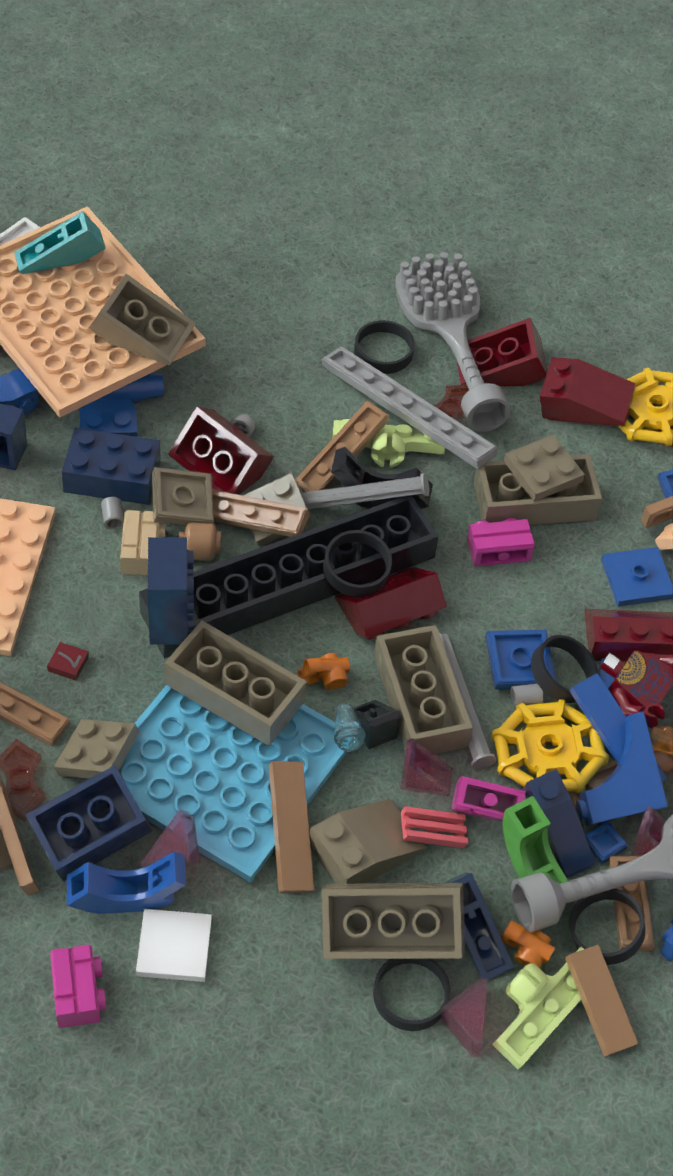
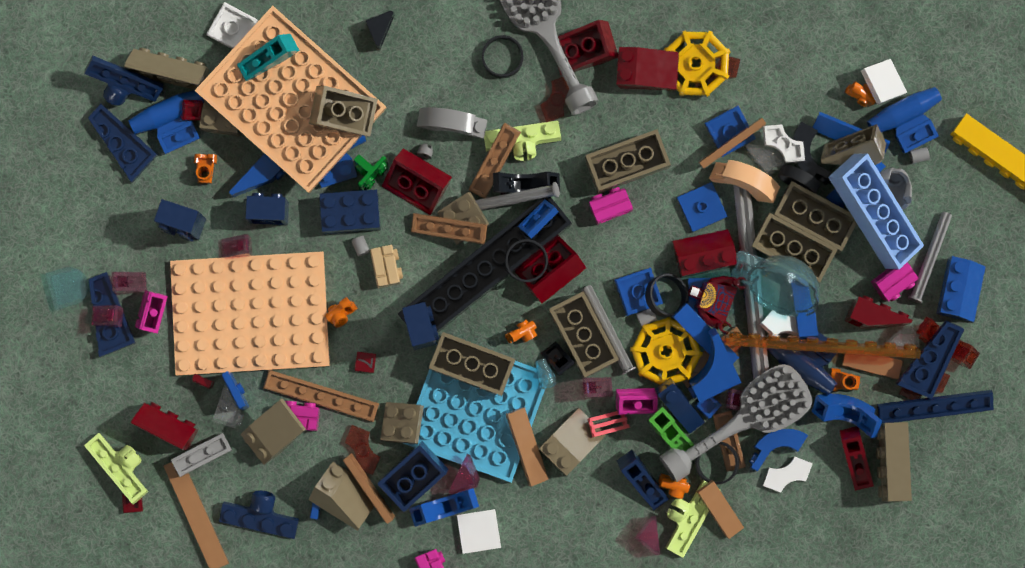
camera: 10 degrees left, 30 degrees up
(49, 586) = (338, 313): none -> orange plate
(159, 418) = (369, 172): none -> green bracket
(182, 496) = (403, 230): dark tan tile -> none
(203, 540) = (422, 256): medium nougat head -> none
(225, 279) = (379, 27): none -> black slope
(294, 386) = (451, 120): none -> light grey arch
(393, 921) = (598, 497): dark tan brick -> none
(399, 510) = (538, 219): none -> blue plate
(410, 407) = (530, 113): light grey tile -> none
(410, 1025) = (635, 527): black tyre -> none
(544, 467) = (629, 151): dark tan plate -> none

